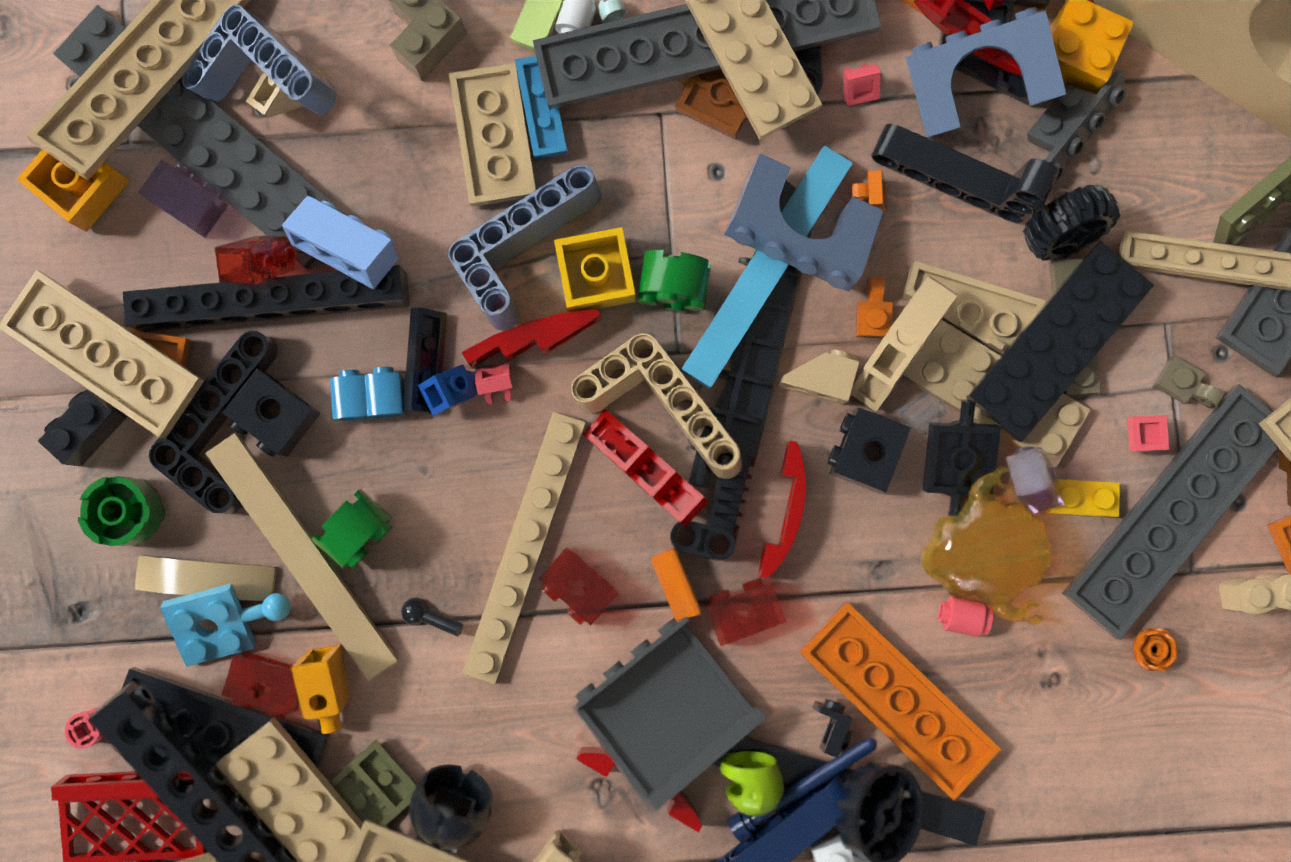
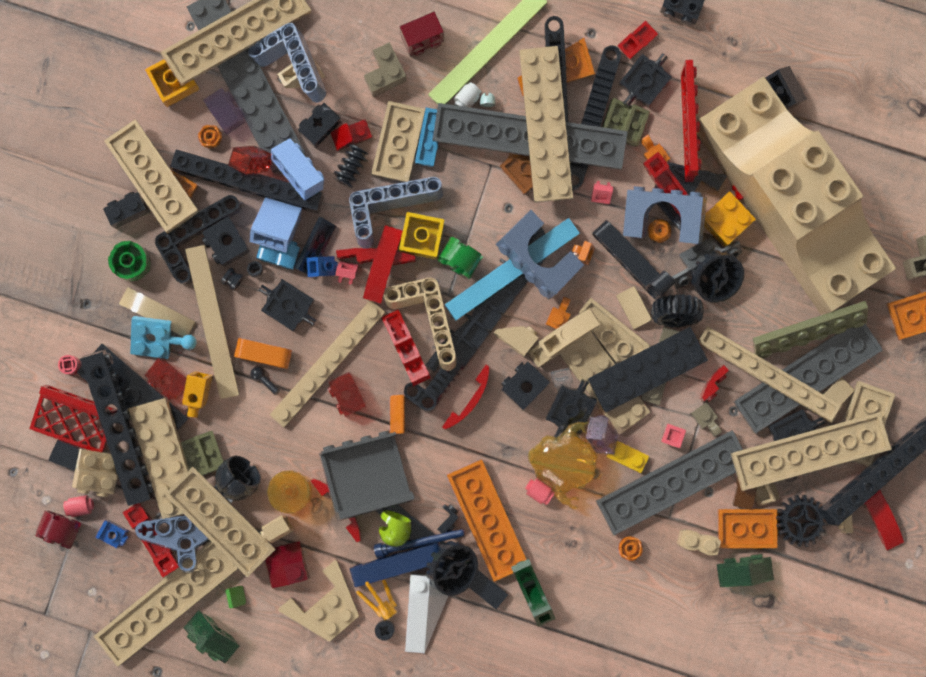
camera: 20 degrees right, 0 degrees up
(169, 242) = (204, 133): none -> orange plate
(308, 471) = (232, 279): none -> black wheel
(336, 436) = (254, 266): none -> black hinge
(342, 351) = (275, 224): none -> light blue brick
(352, 530) = (244, 318): green brick -> none
(354, 174) = (314, 134): none -> black brick
(409, 574) = (263, 353): none -> orange beam
(410, 155) = (351, 134): none -> red slope
(418, 477) = (287, 305): none -> black plate
(429, 203) = (350, 165): none -> black piece
(542, 812) = (301, 491): none -> clear yellow wheel
(549, 345) = (382, 264): none -> red slope
(732, 627) = (437, 447): clear red brick -> none
(977, 118) = (657, 236): none -> orange plate
(991, 249) = (634, 307): none -> tan slope
(1030, 795) = (533, 592): none -> dark green arch
(1118, 135) = (723, 276): none -> black gear
(1171, 328) = (710, 387): none -> red slope

